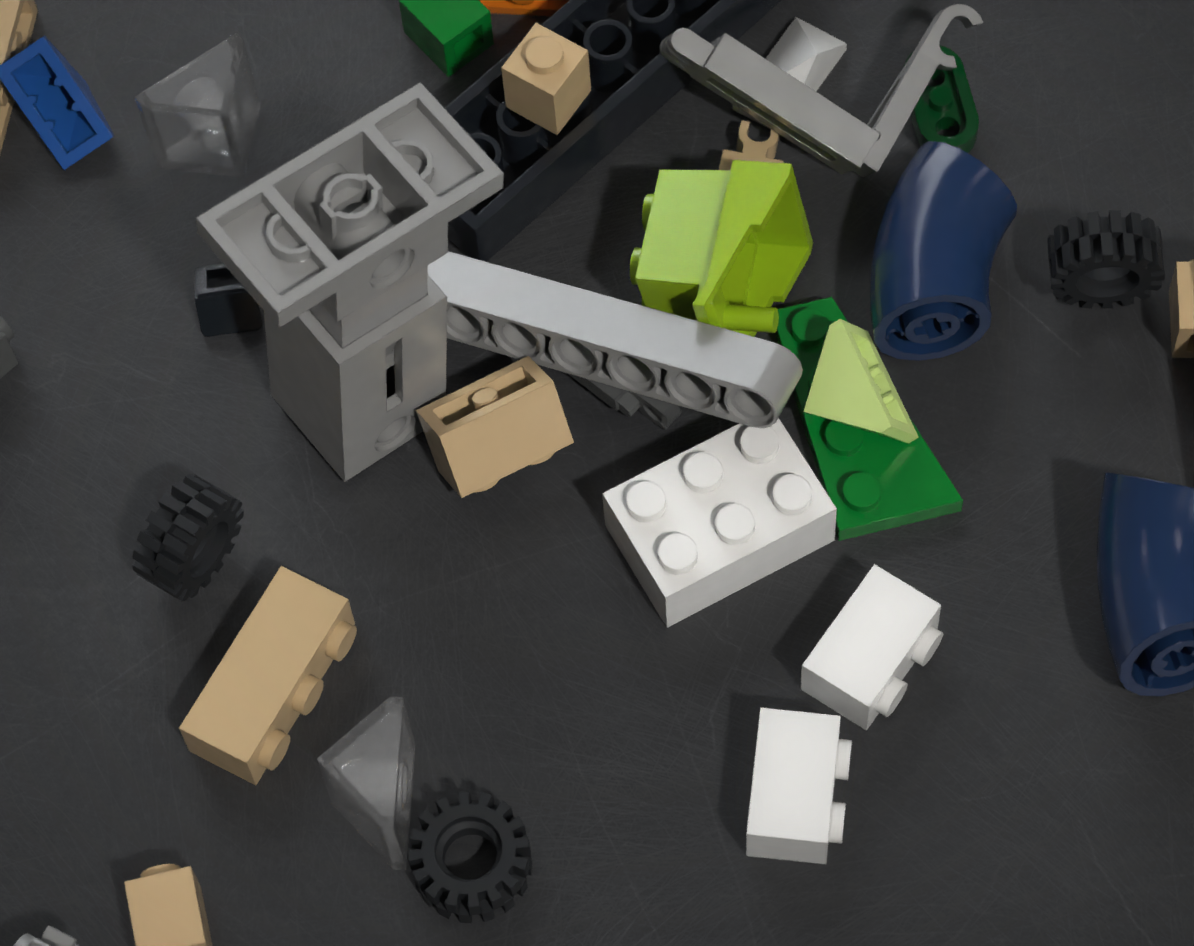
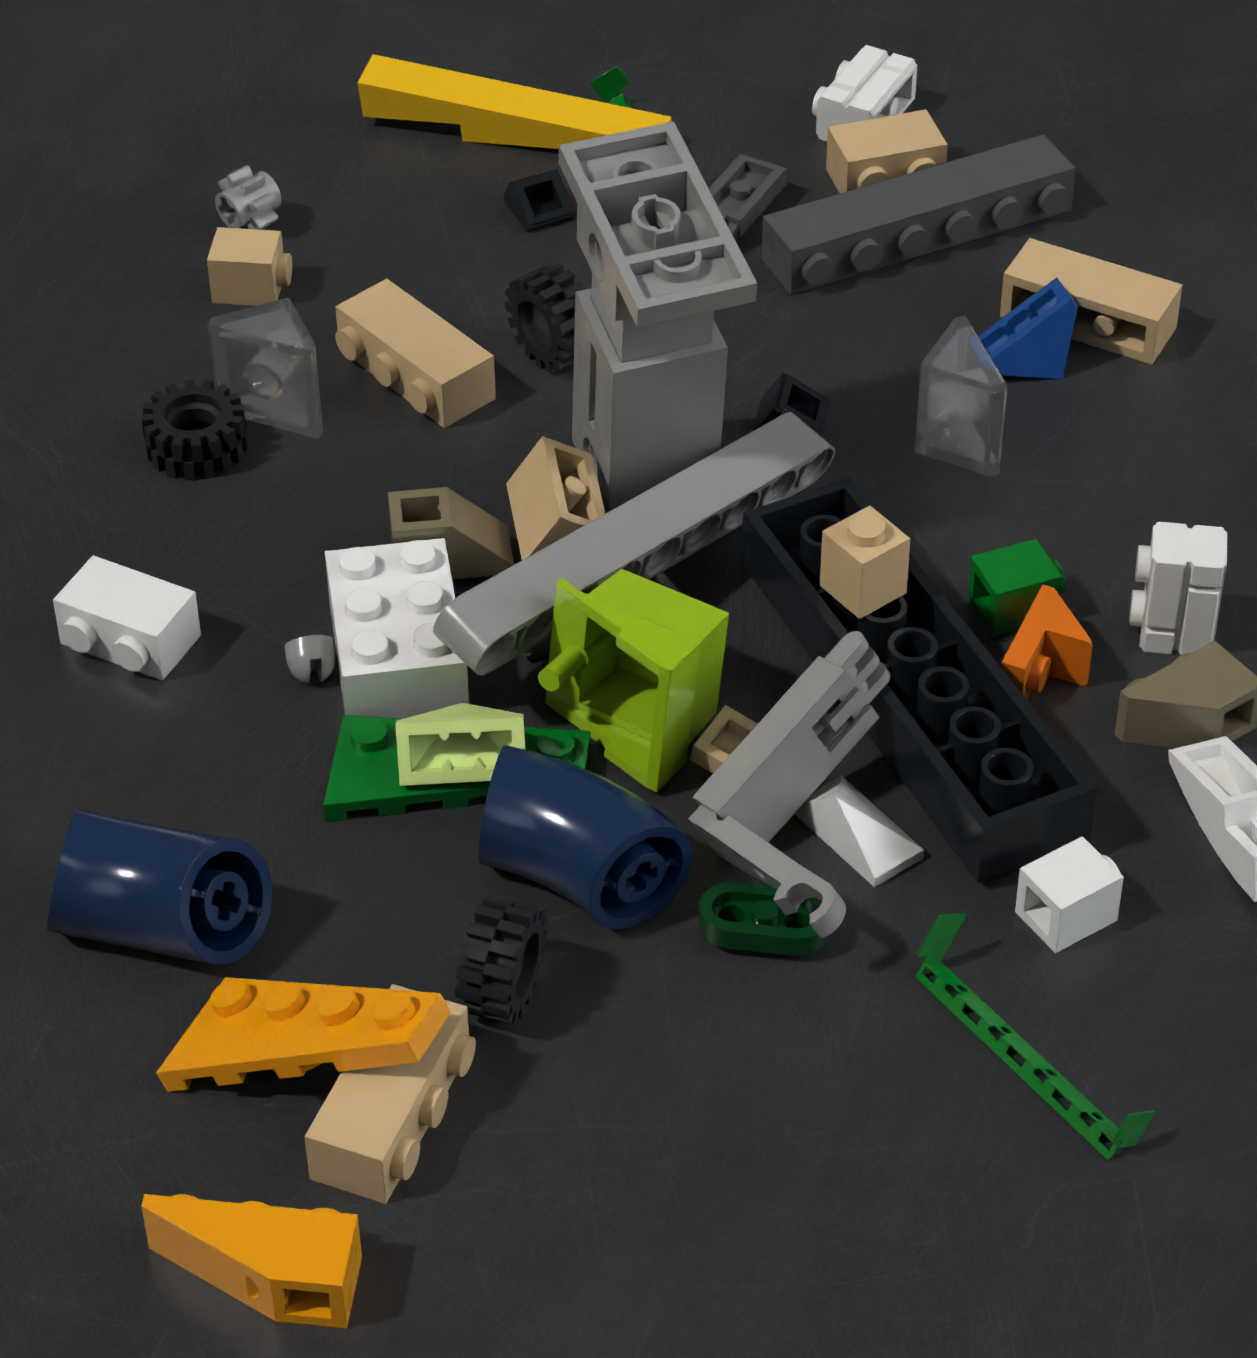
camera: 105 degrees right, 20 degrees down
(573, 523) = (473, 538): none -> dark tan slope
(766, 586) = (310, 655): none -> light grey hinge
(872, 647) = (217, 699): white brick -> none

